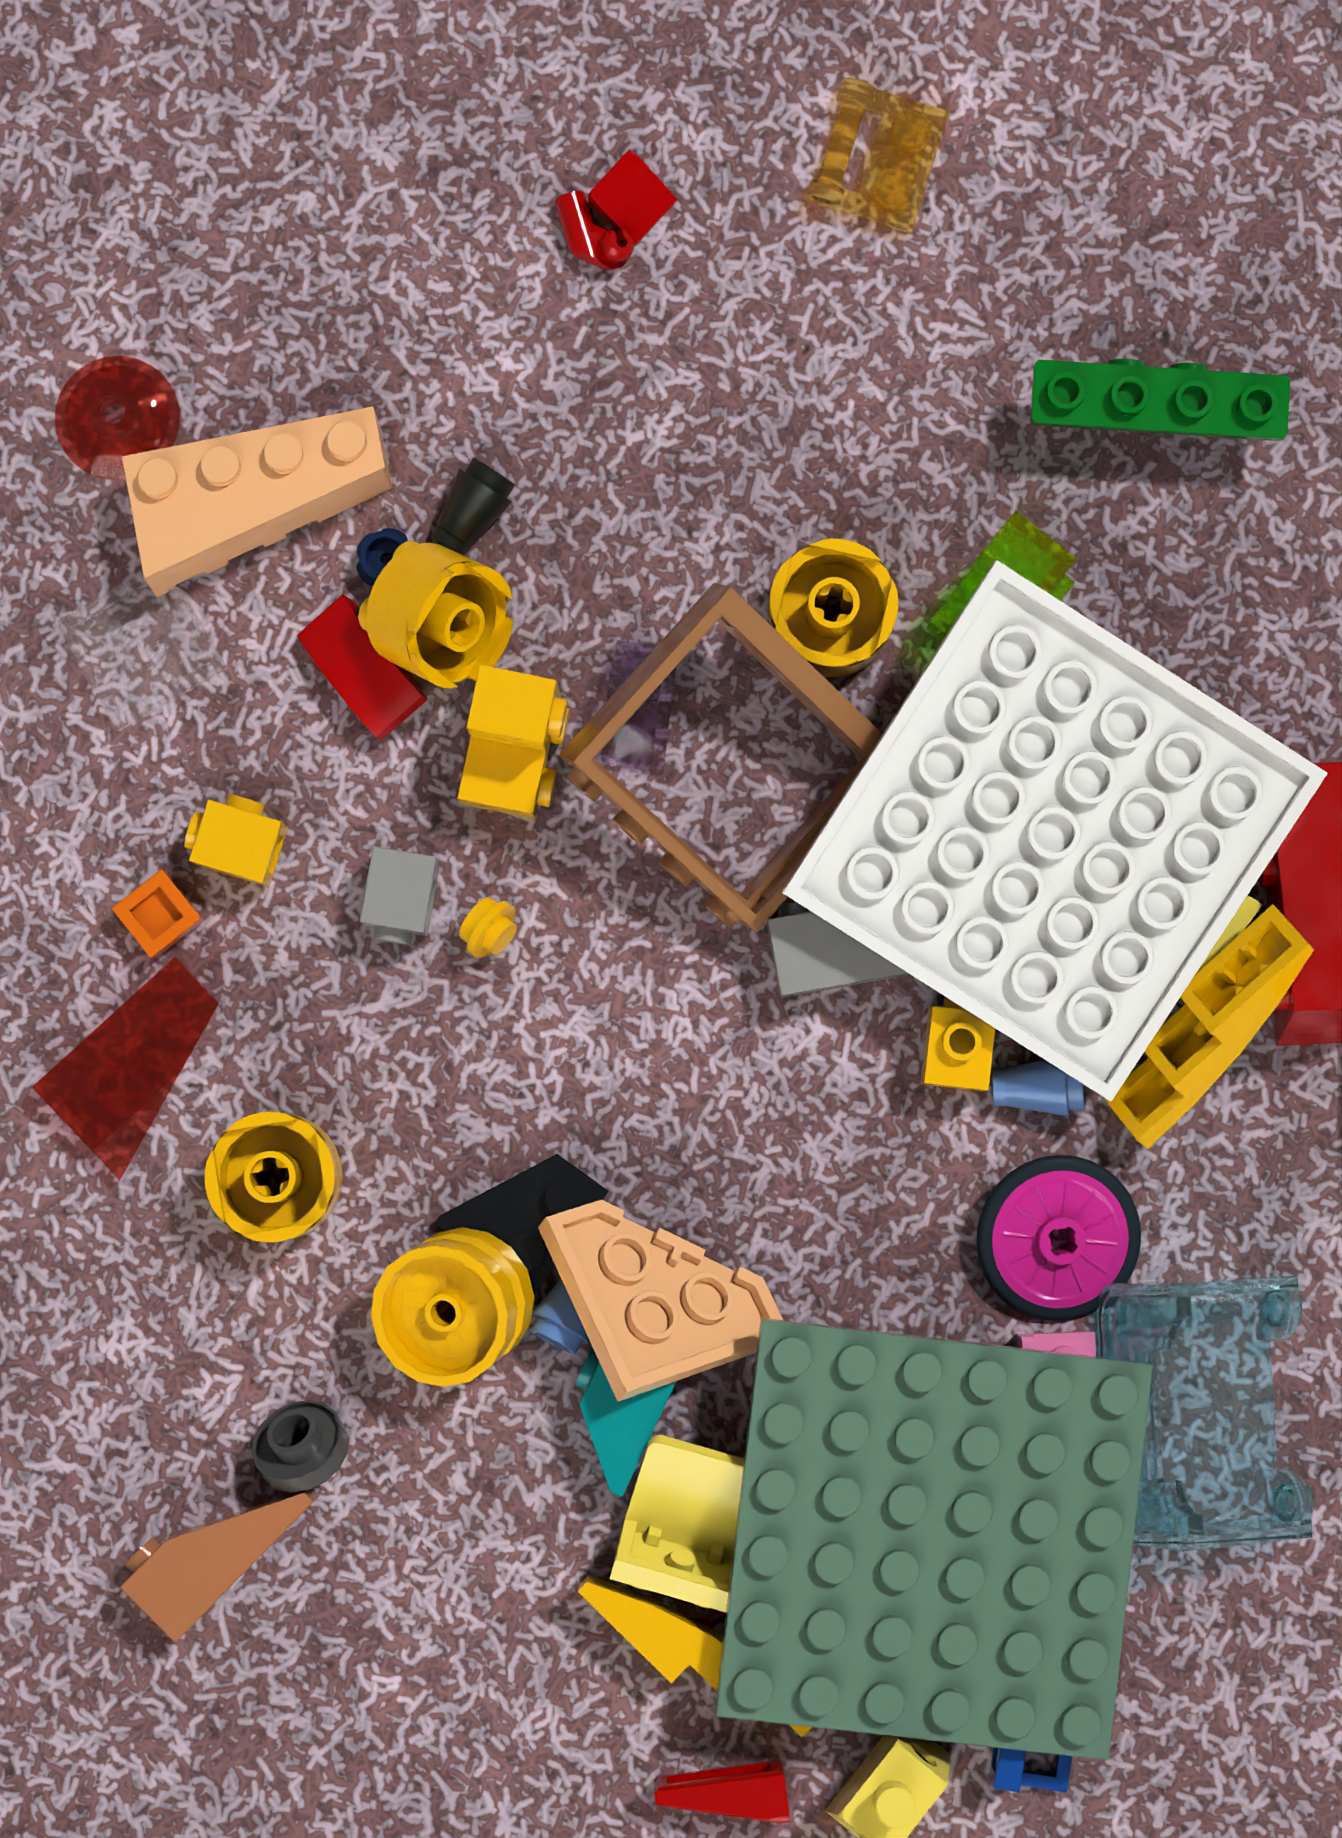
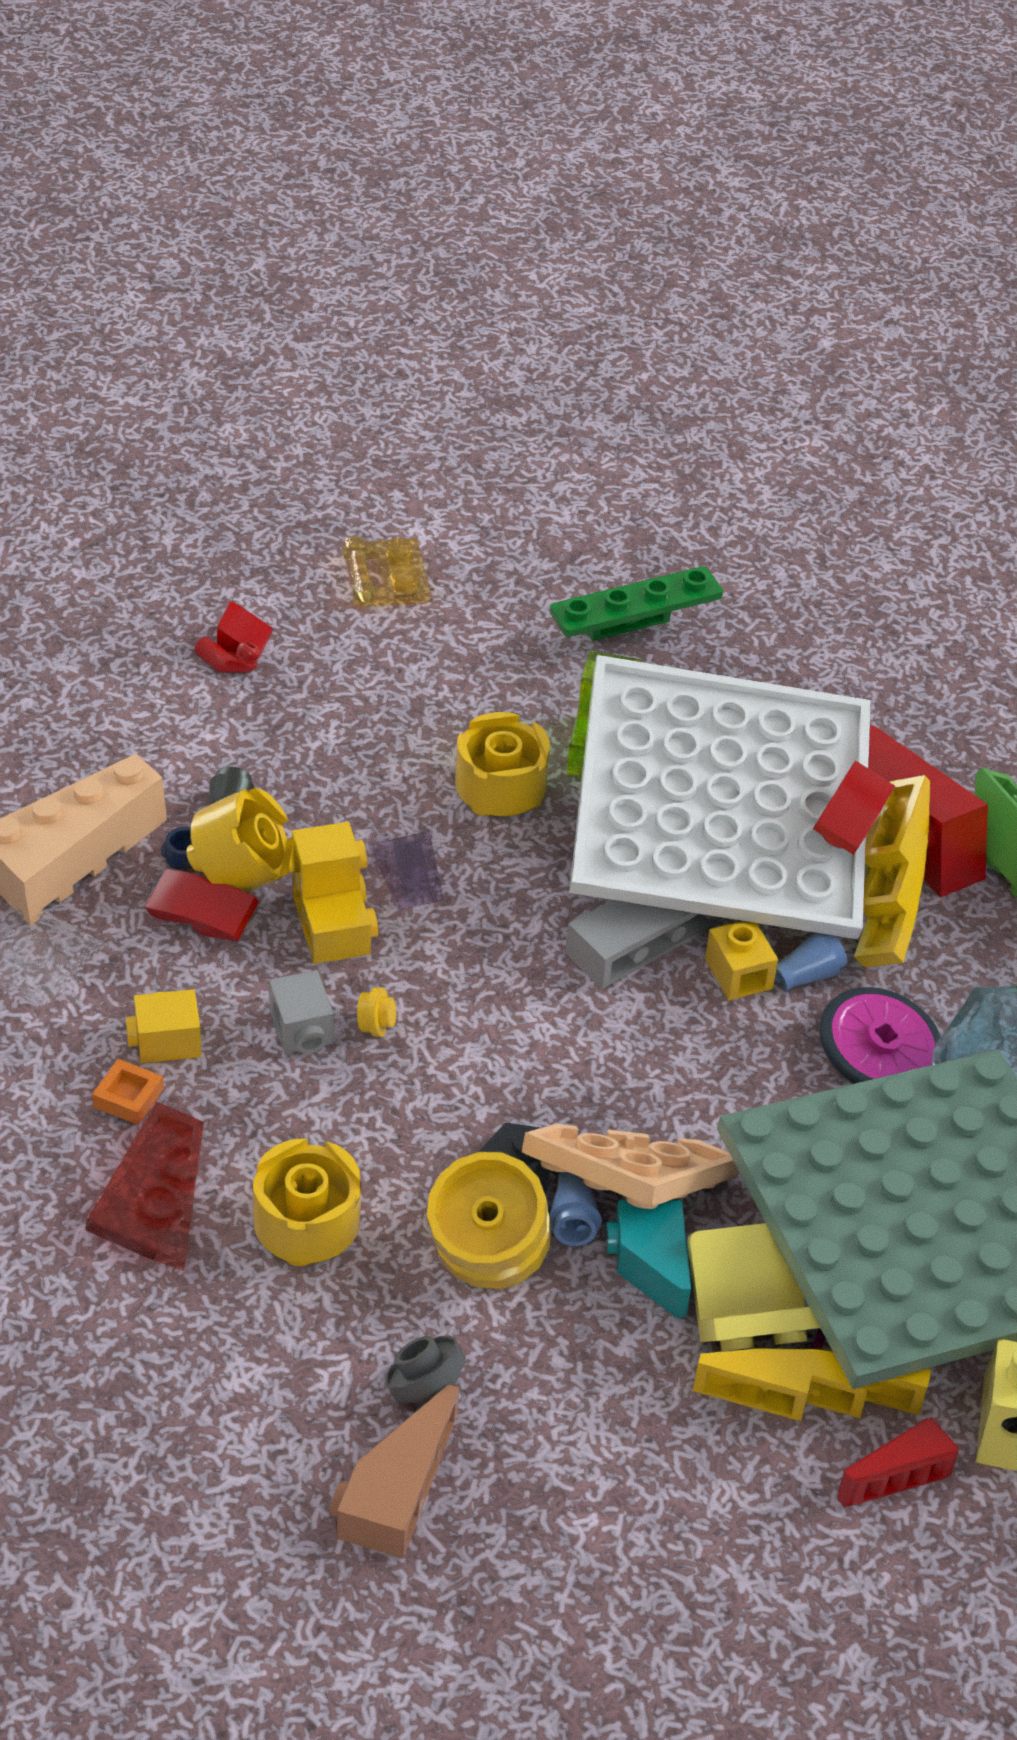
camera: 35 degrees left, 40 degrees down
(788, 666) = (509, 796): medium nougat window -> none
(1193, 948) = (853, 808): none -> red slope

